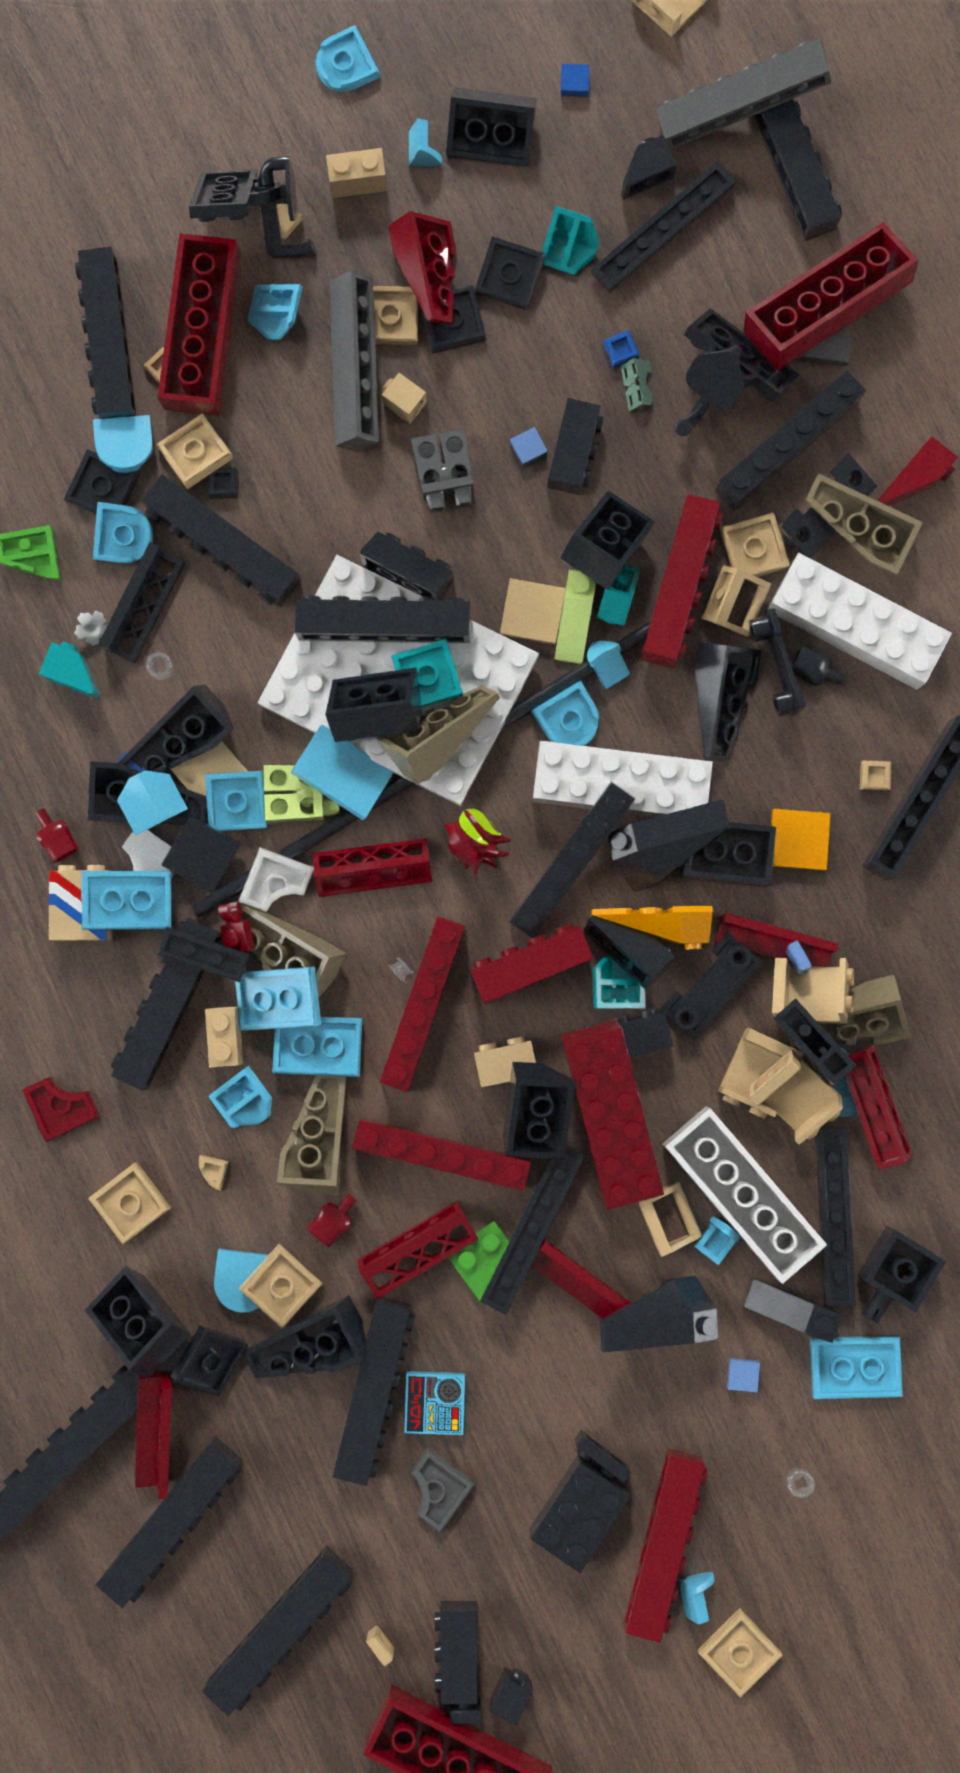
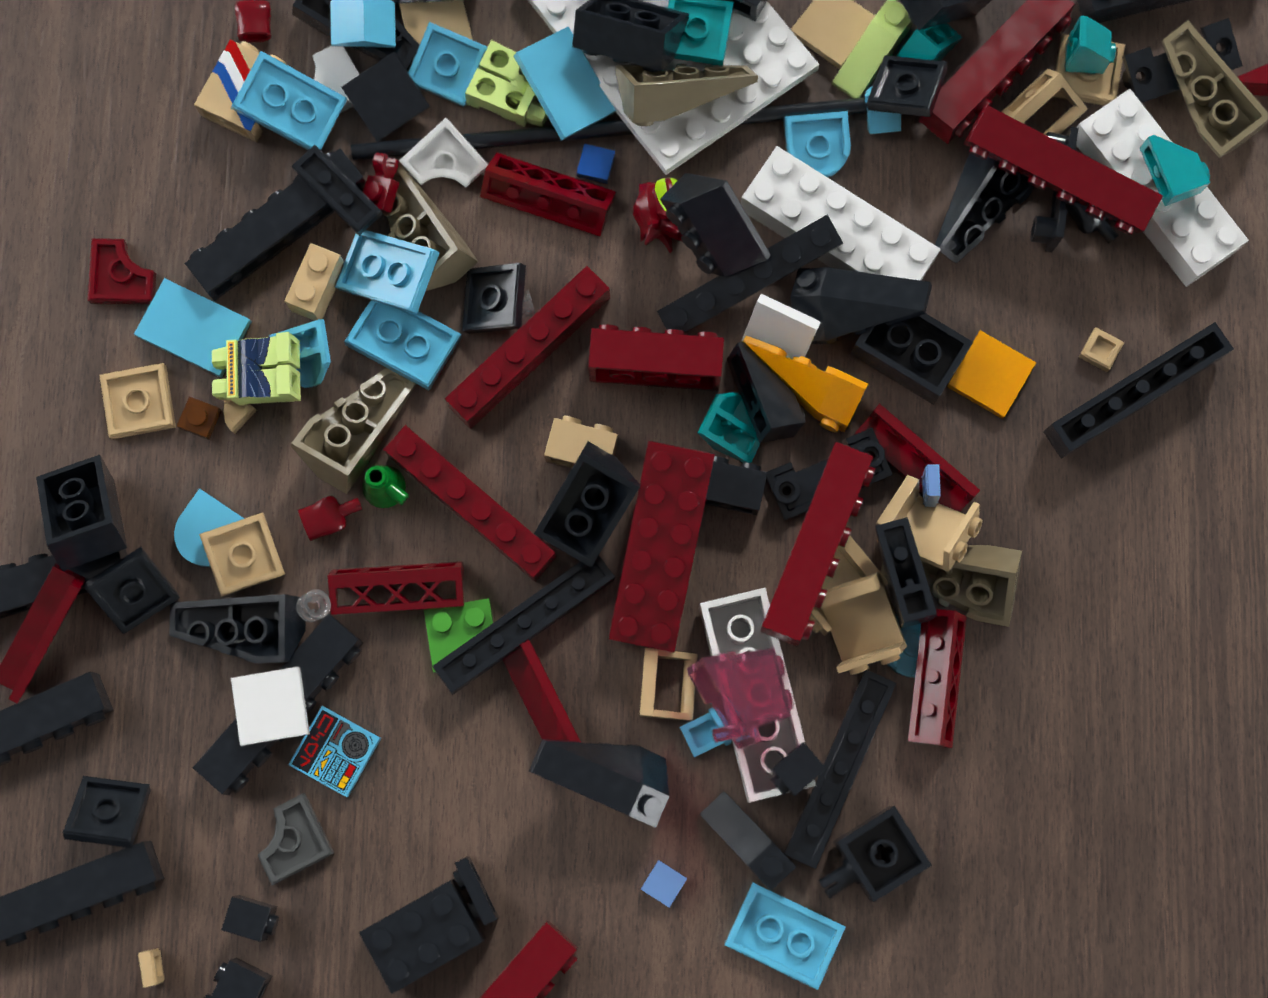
camera: 25 degrees right, 5 degrees down
(142, 1121) = (190, 325): none -> medium azure tile
(186, 1192) = (199, 418): none -> reddish brown plate
(207, 1136) = (259, 370): none -> yellowish green hips
(282, 1544) = (107, 812): none -> black tile
(368, 1303) = (317, 596): none -> clear bush
(369, 1399) = (270, 706): none -> white tile
(370, 1166) = (388, 490): none -> green piece
(375, 977) = (494, 298): none -> black tile
(398, 822) = (595, 163): none -> blue tile
(438, 1568) = (250, 918): none -> black brick
(525, 838) = (714, 225): none -> black slope
(618, 890) = (782, 327): none -> white tile
(621, 640) = (907, 86): none -> black tile
(735, 1055) = (816, 545): none -> dark red brick
(741, 1206) = (744, 693): none -> clear pink piece
(749, 534) = (1089, 47): none -> teal slope
(780, 652) = (1062, 170): none -> dark red brick
(808, 1243) = (796, 770): none -> black brick
(868, 607) = (1174, 169): none -> teal slope

